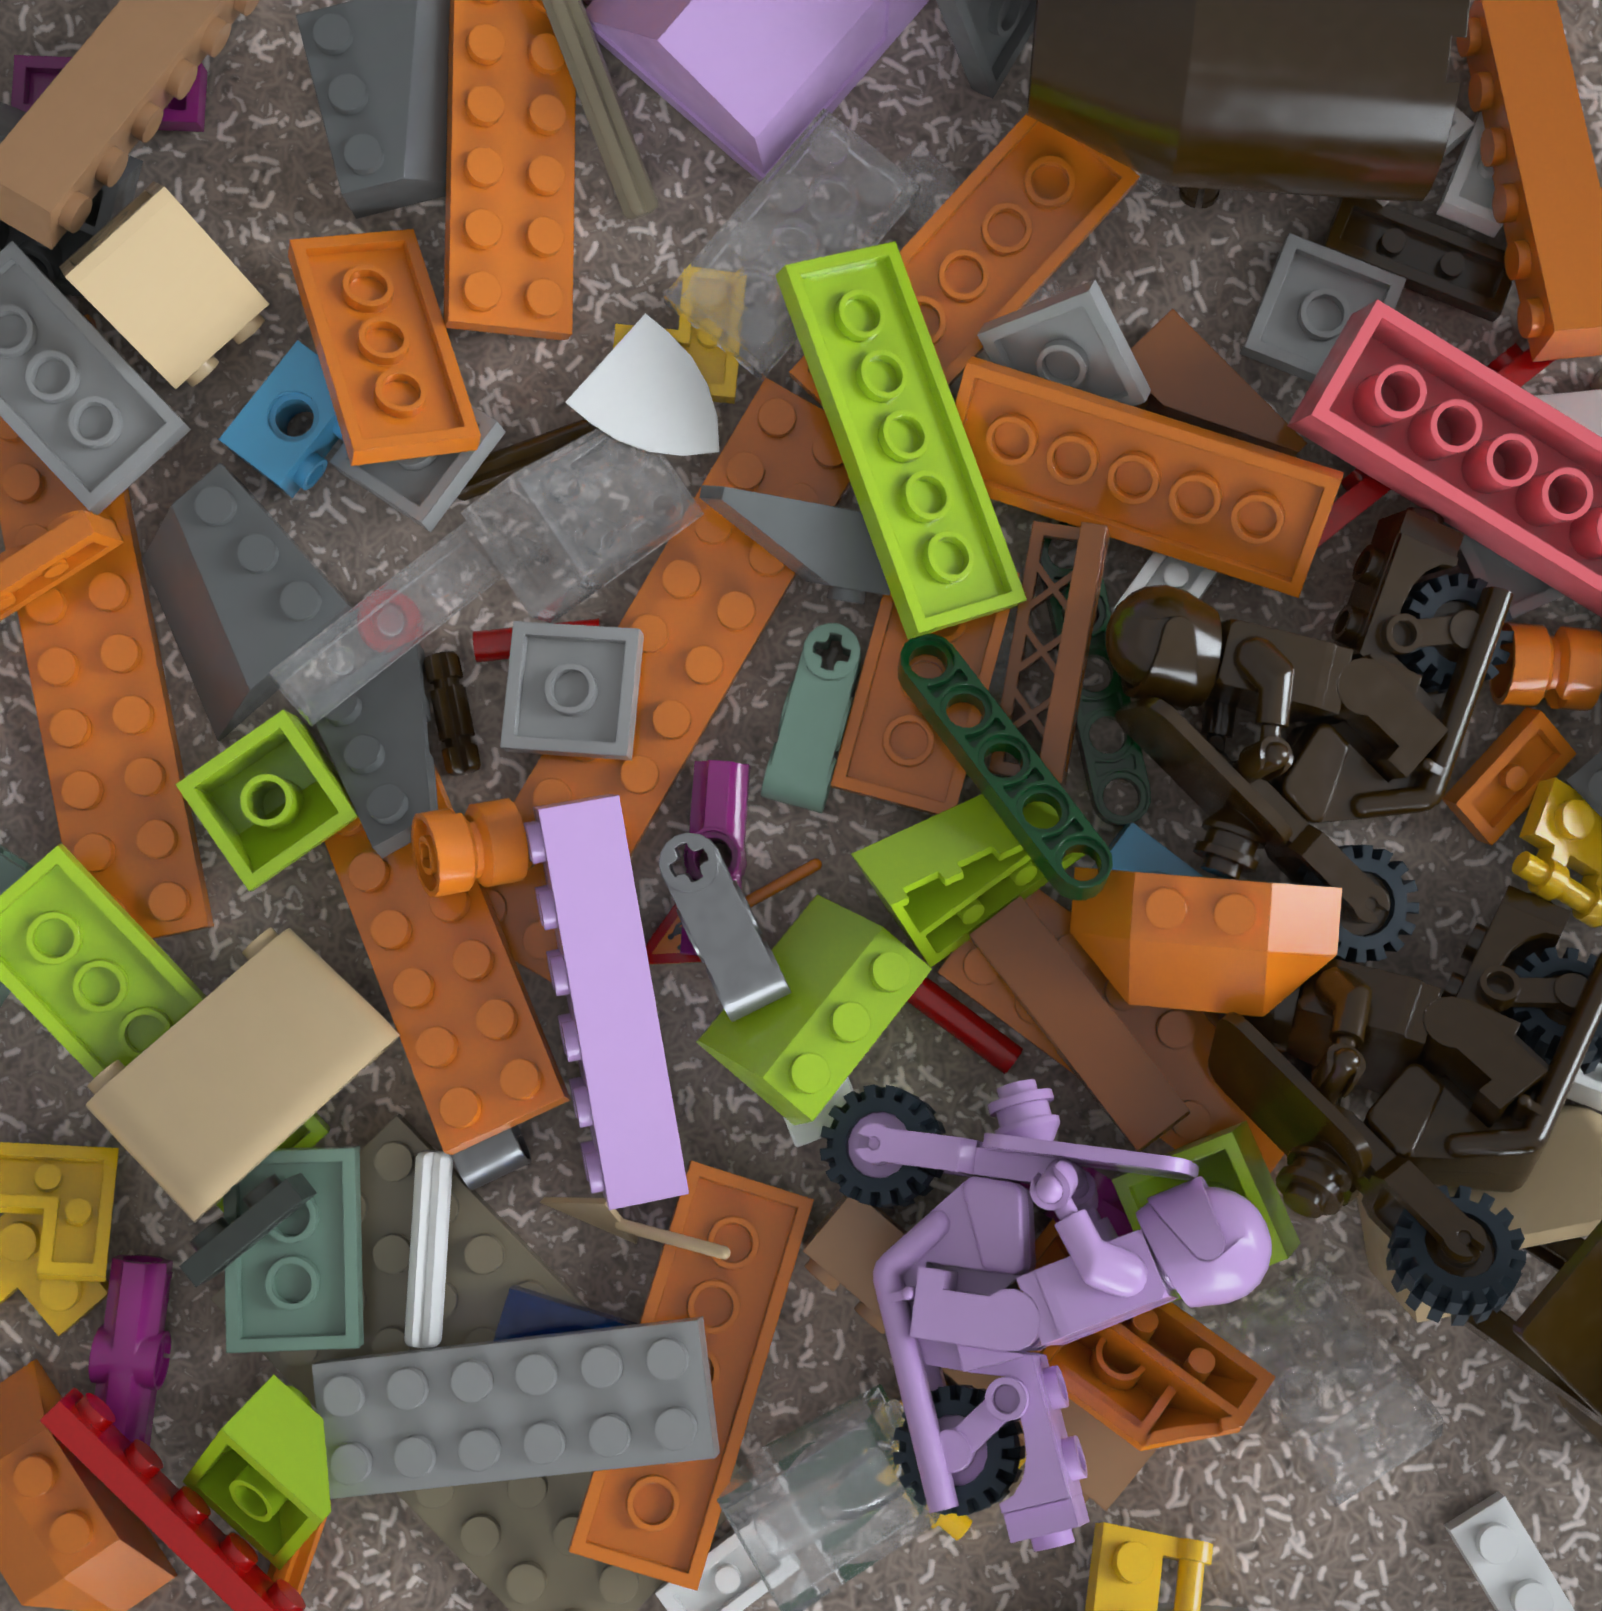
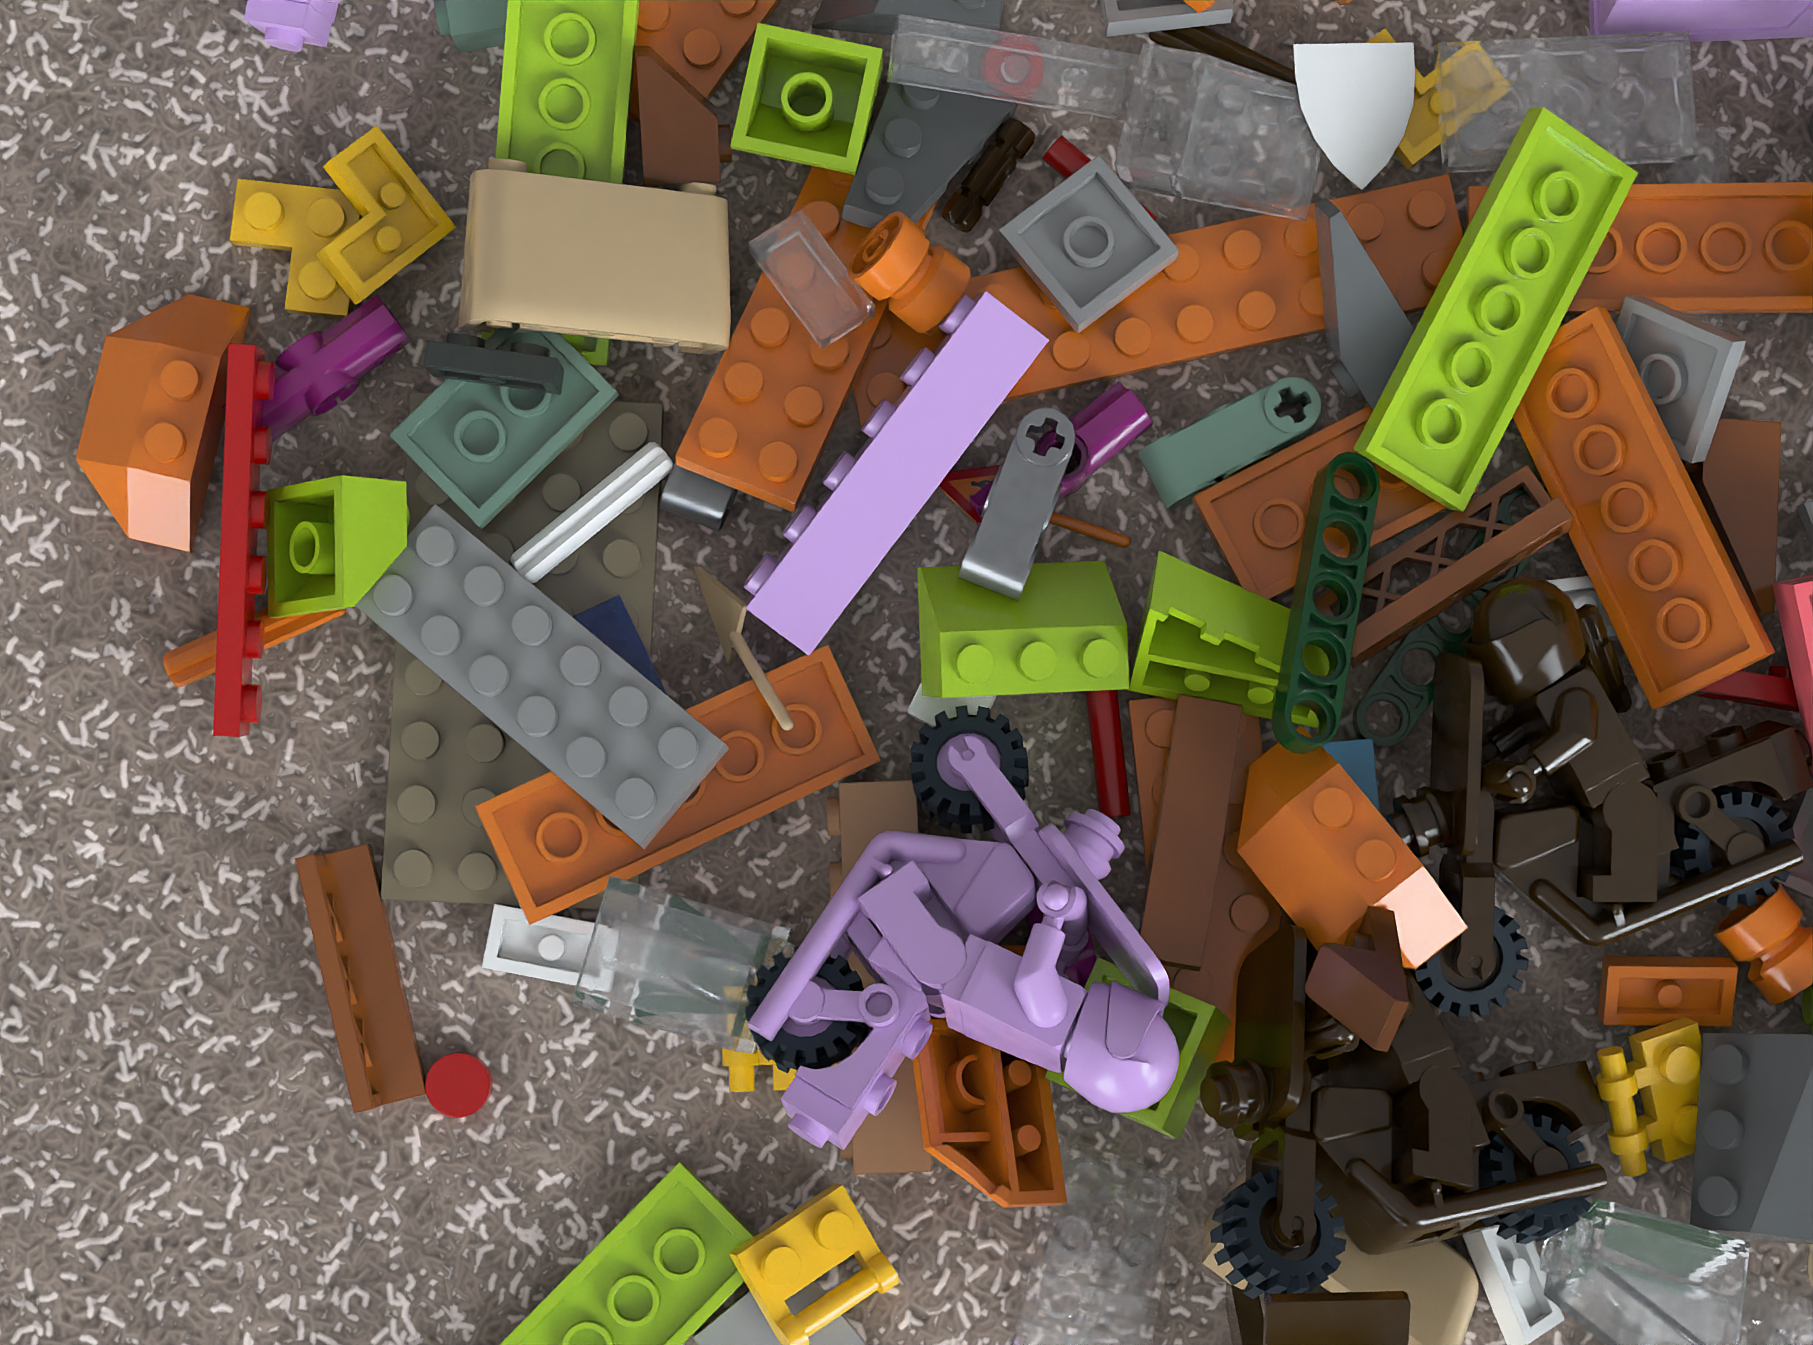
camera: 45 degrees right, 0 degrees up
(195, 915) = (677, 126): none -> reddish brown slope
(406, 923) = (811, 279): none -> clear tile
(1227, 600) = (1602, 658): none -> dark brown axle
(1321, 1010) = (1363, 980): none -> reddish brown slope

